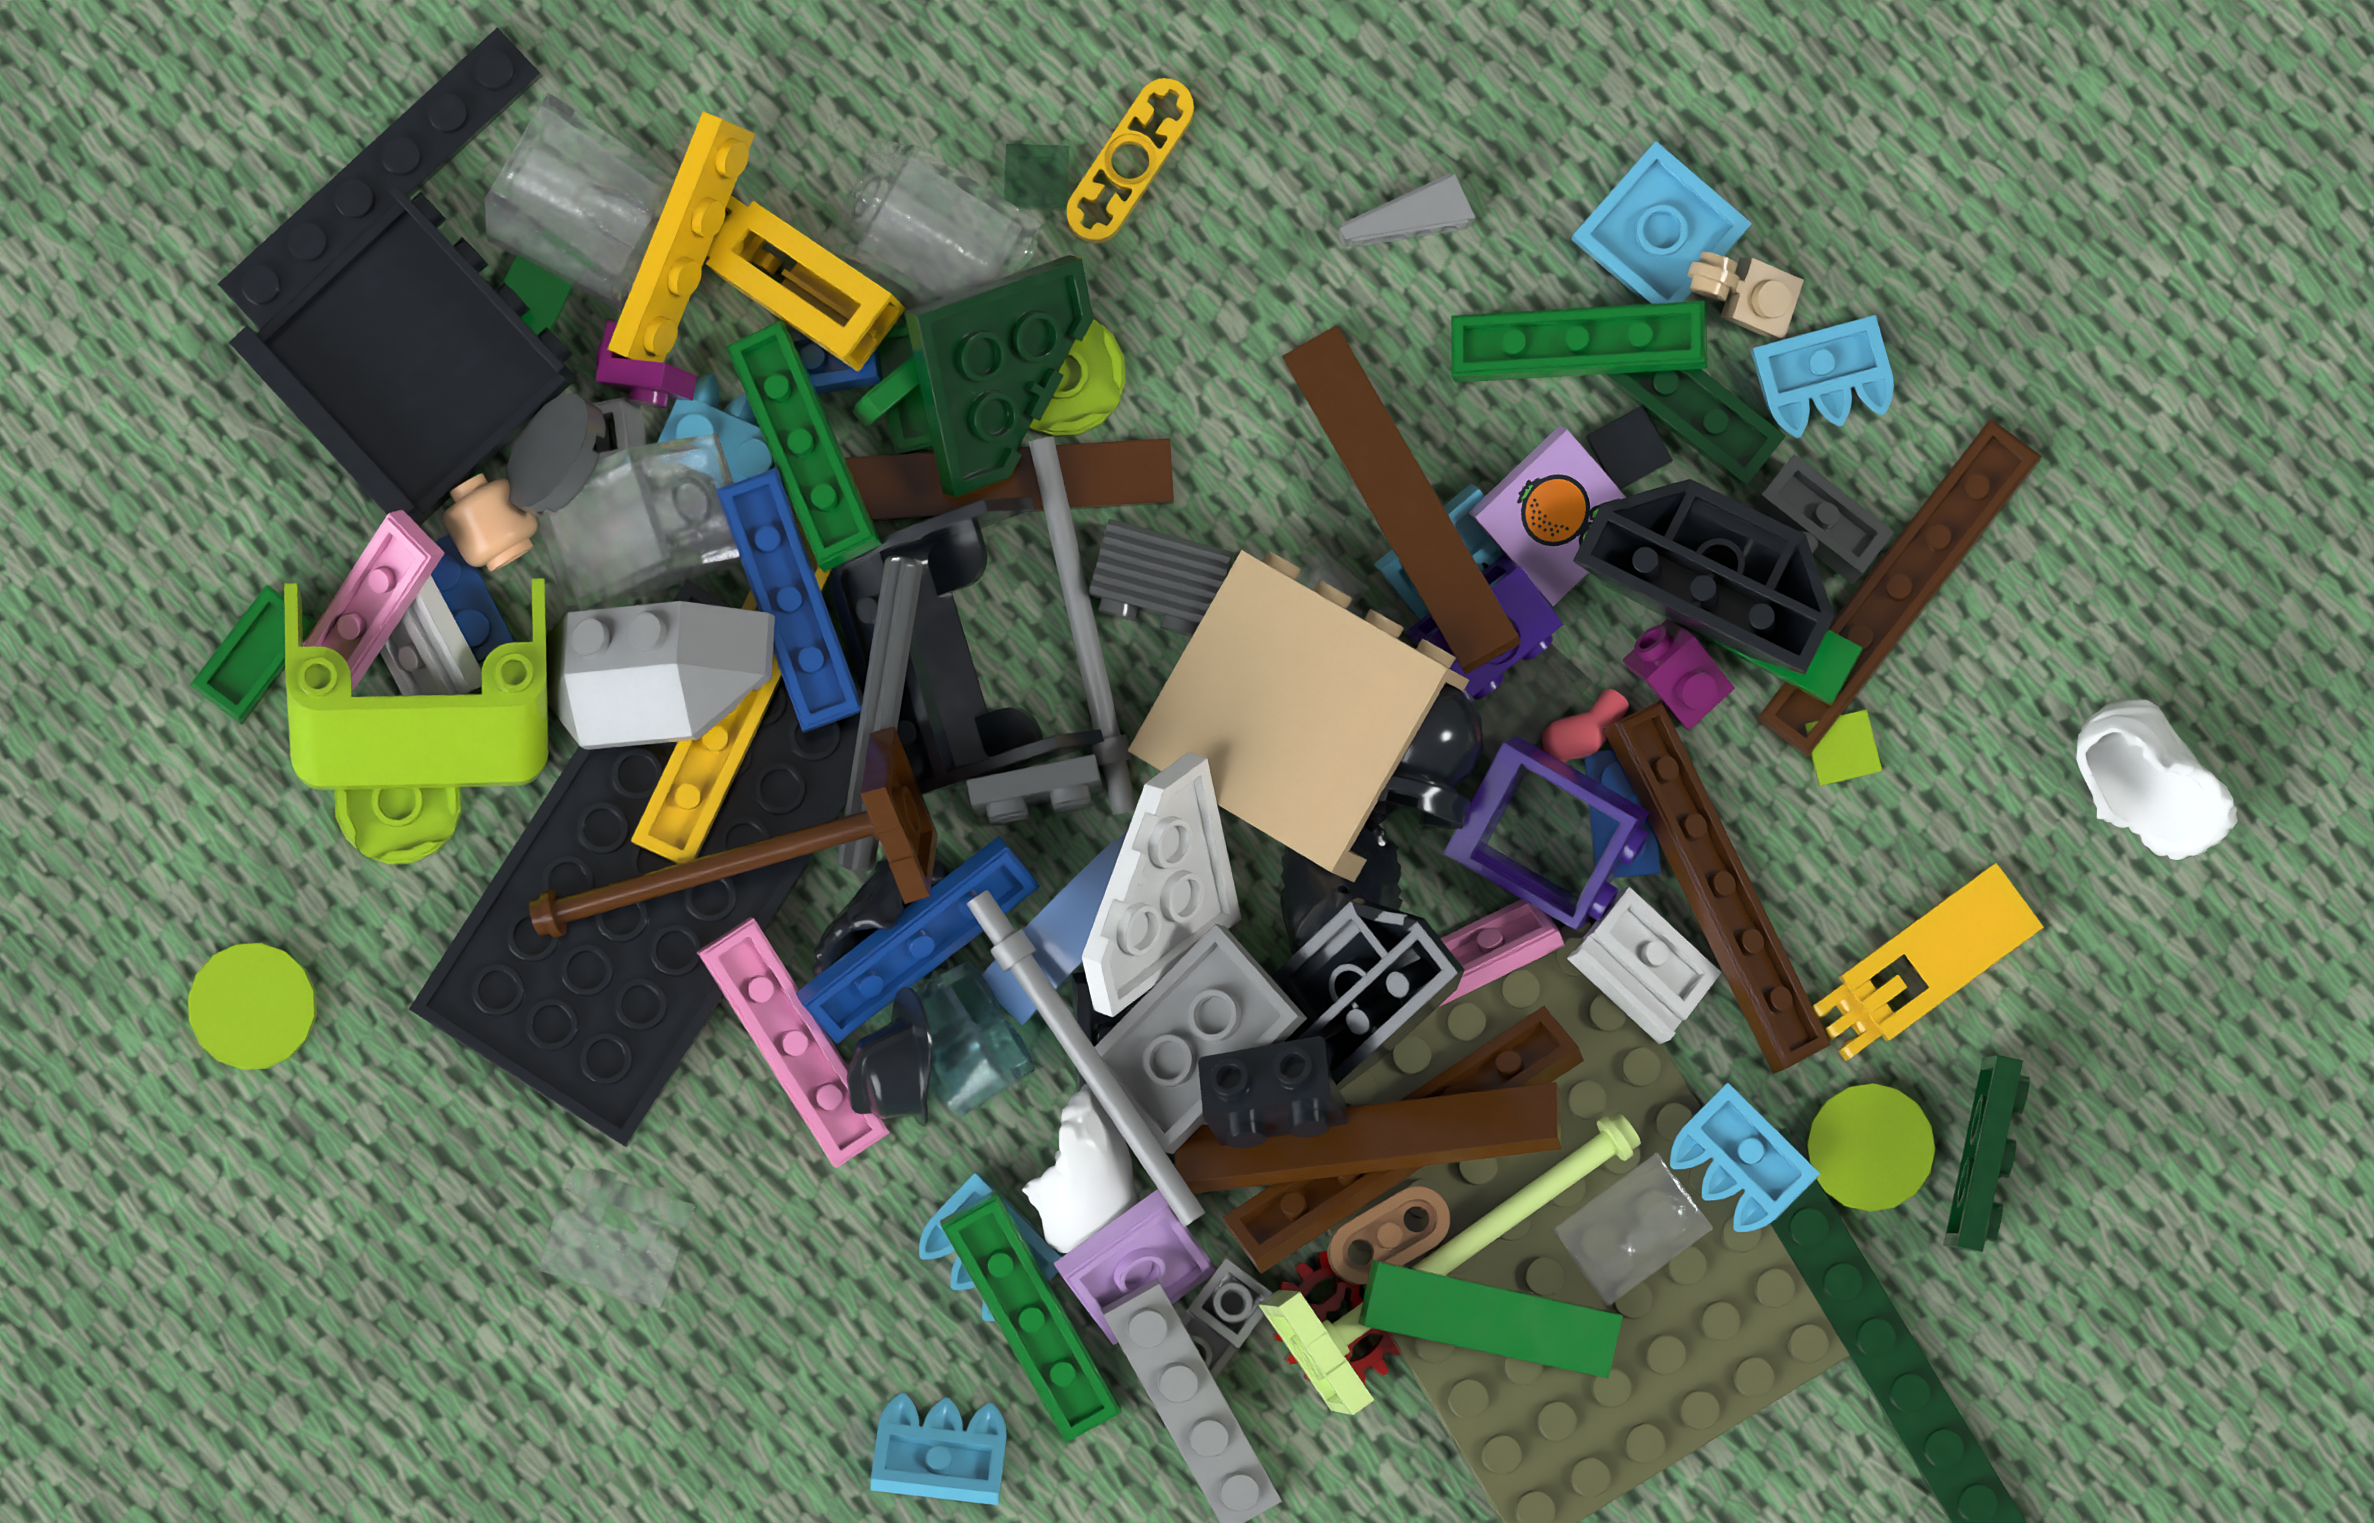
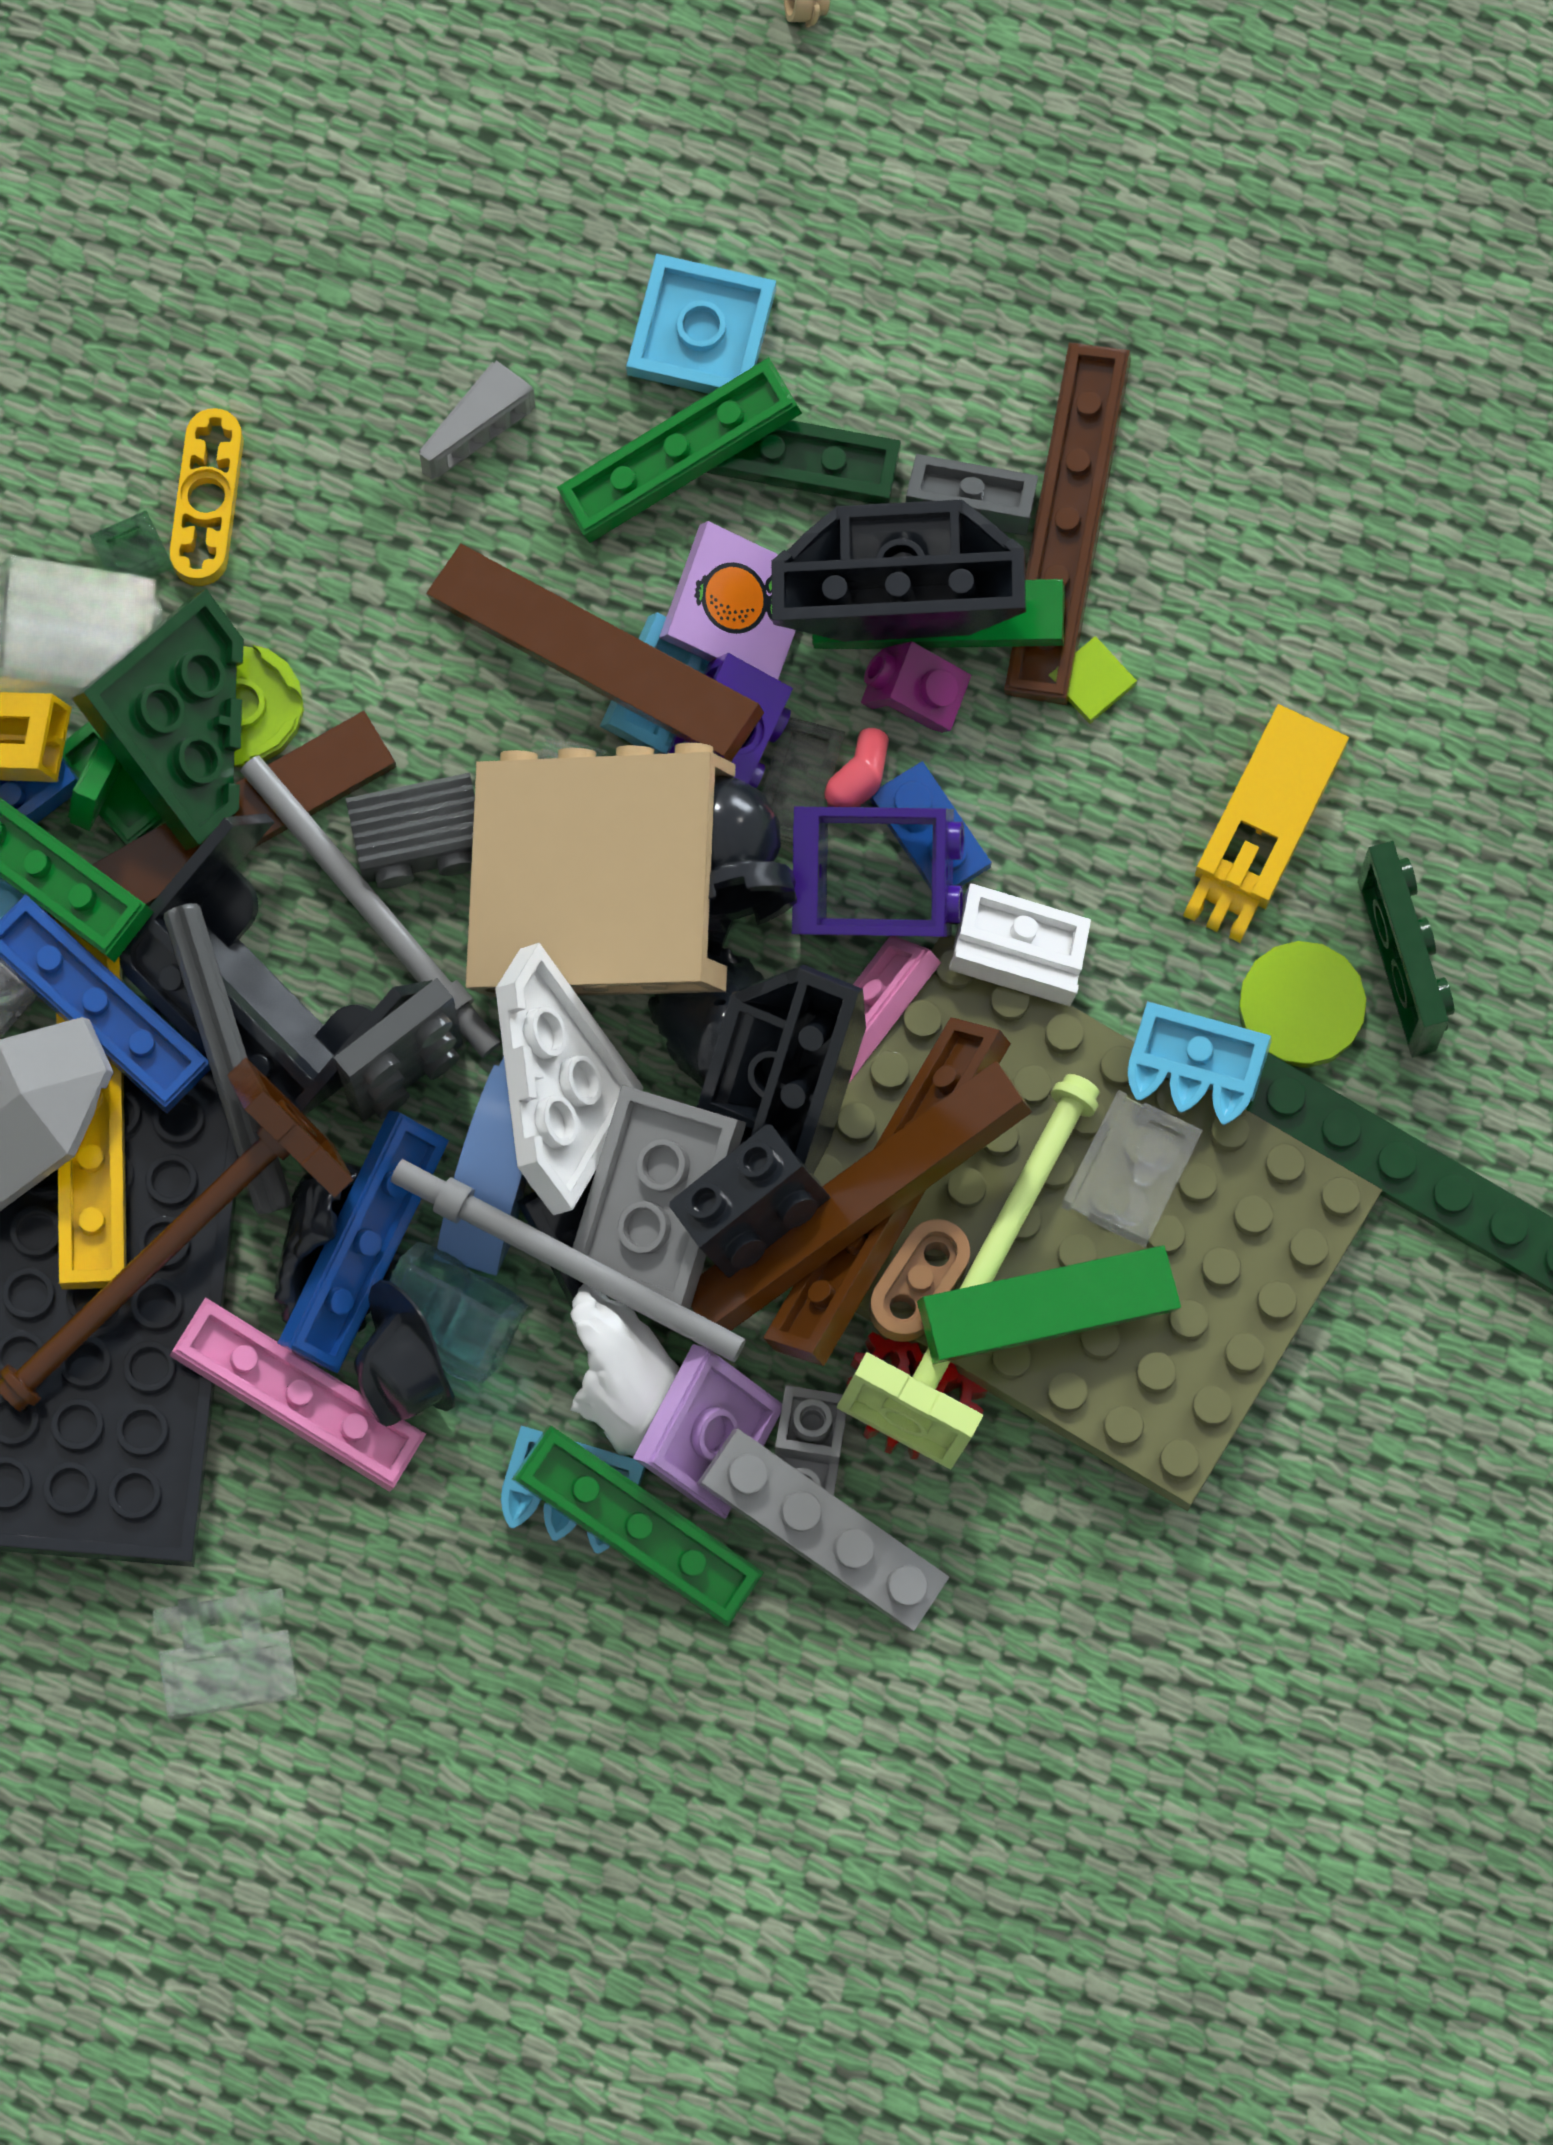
camera: 30 degrees left, 10 degrees down
(939, 1456) = (620, 1694): medium azure plate -> none
(1629, 448) = (771, 518): black tile -> none
(1717, 887) = (1047, 847): reddish brown tile -> none
(1753, 292) = (812, 337): tan plate -> none
(1825, 370) = (905, 371): medium azure plate -> none
(2152, 780) = (1375, 567): white piece -> none

